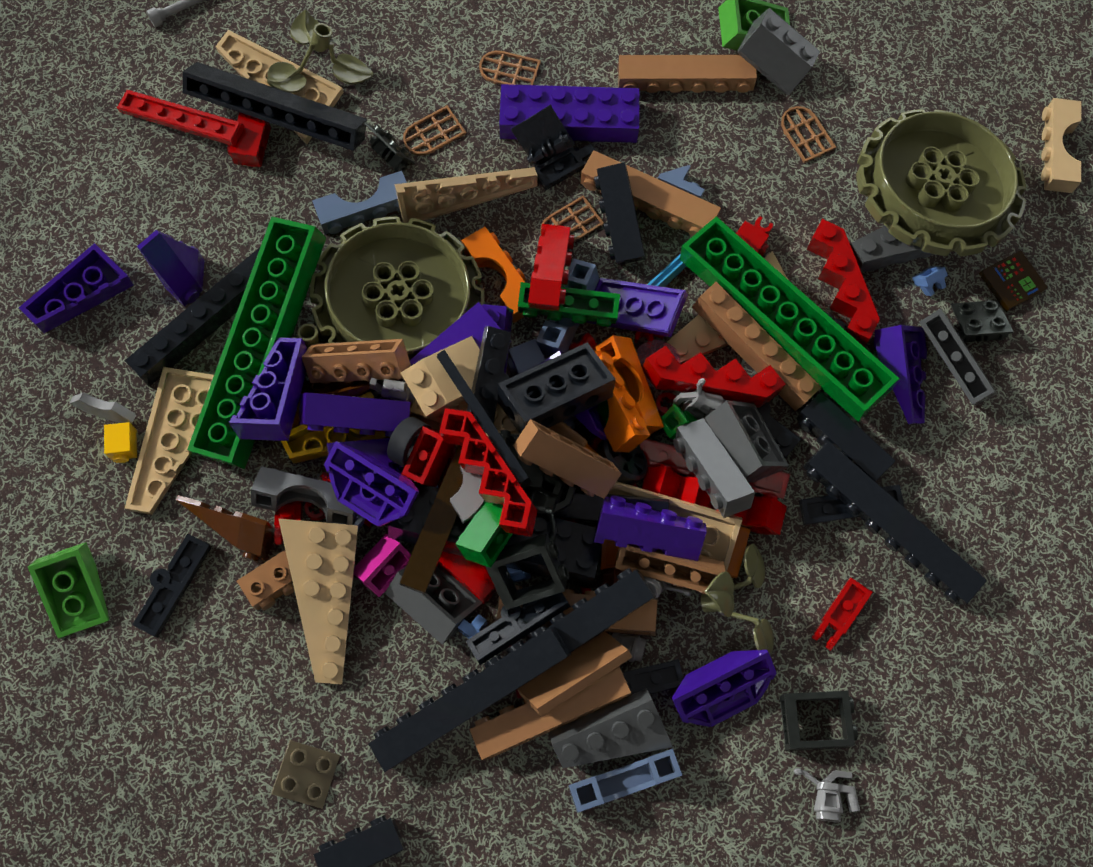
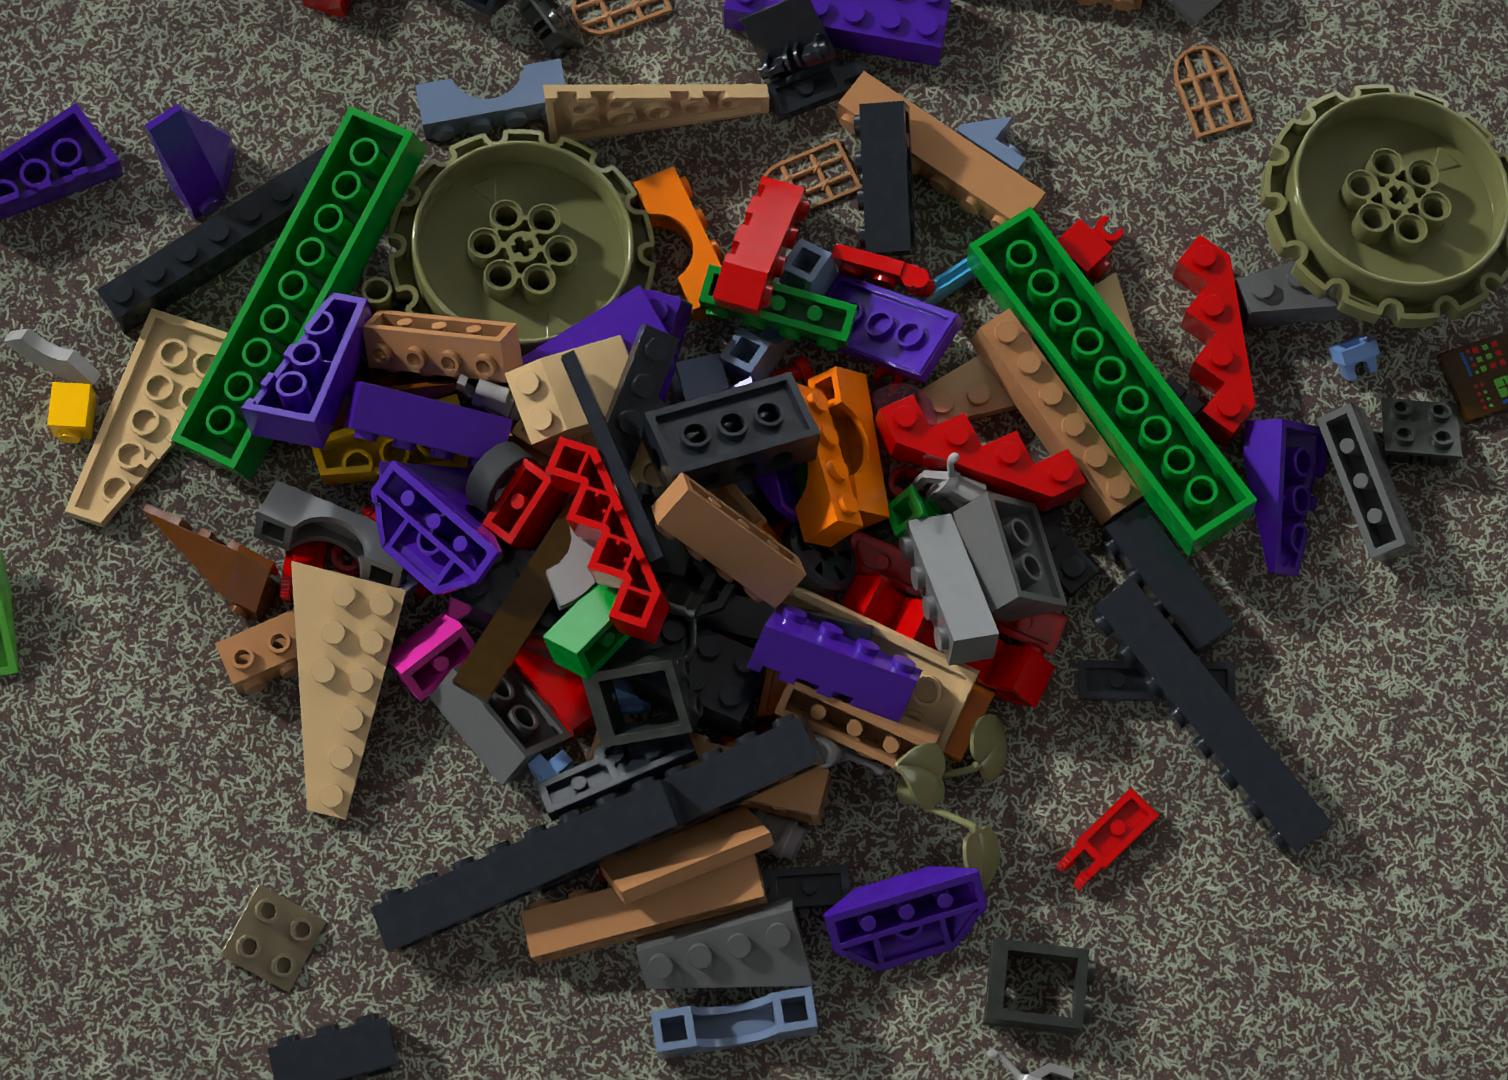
camera: 10 degrees right, 0 degrees up
(171, 585) = (117, 635): black hinge -> none
(629, 271) = (884, 270): none -> red hinge

